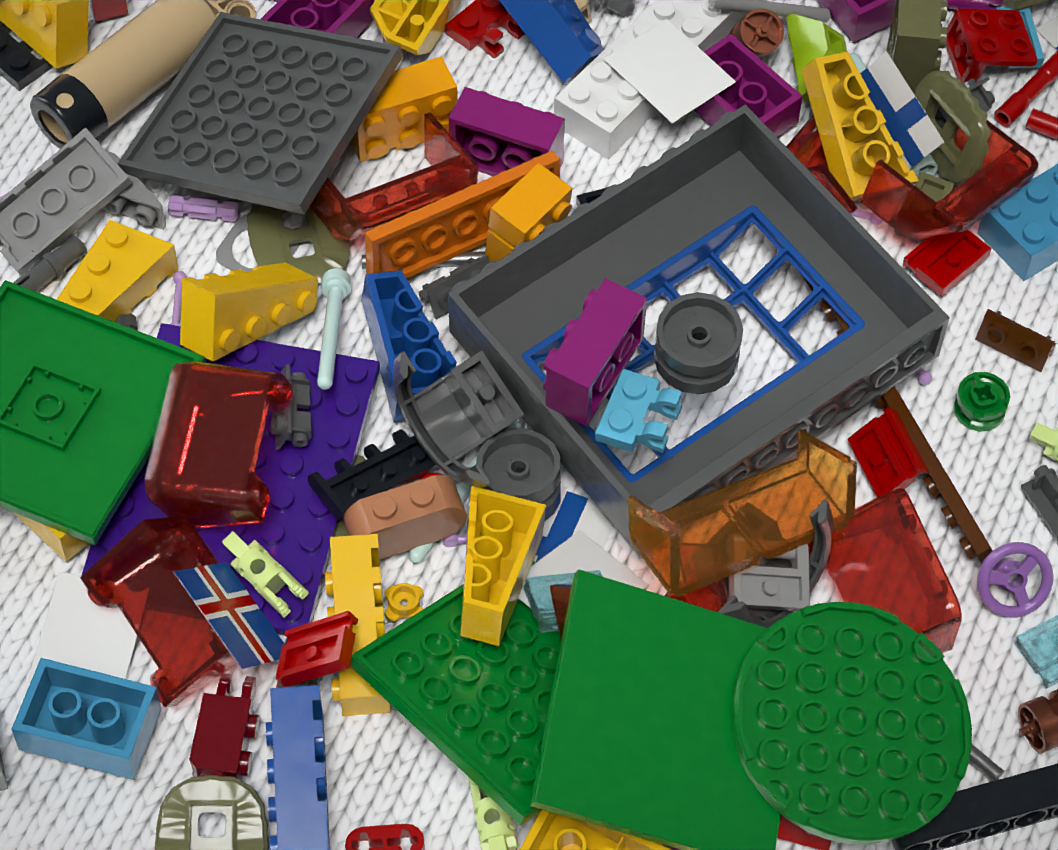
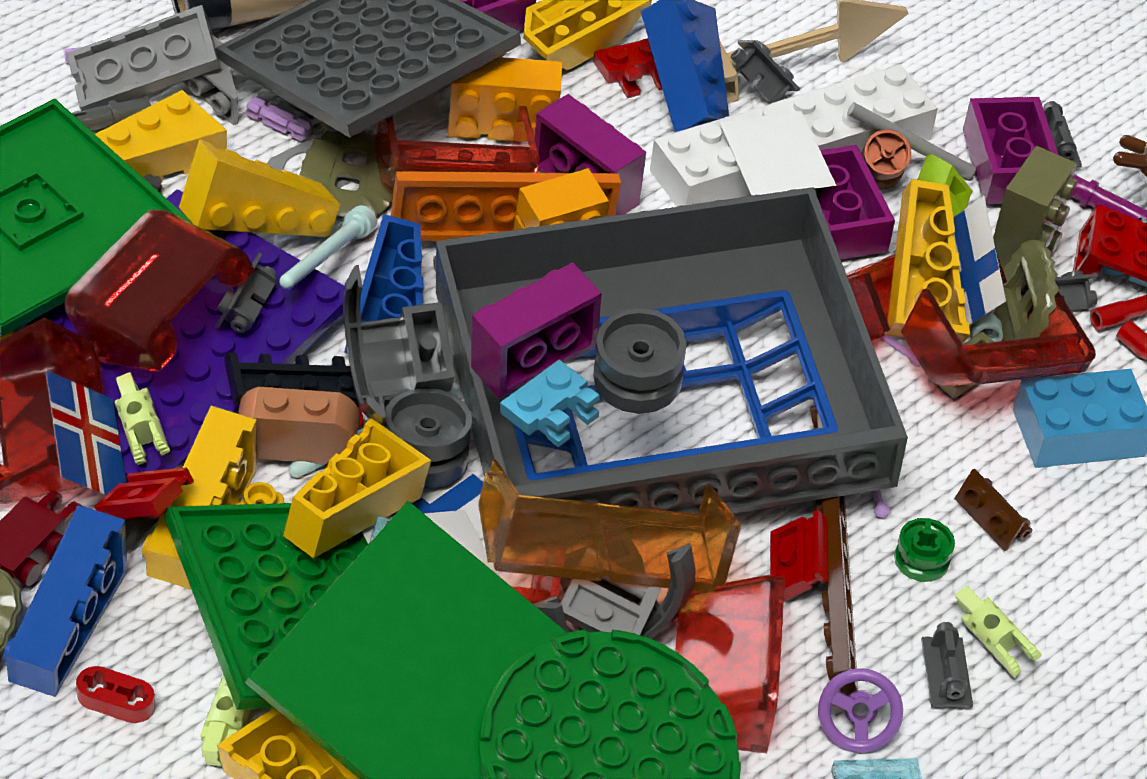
camera: 20 degrees right, 10 degrees down
(946, 259) = (965, 415): red plate -> none

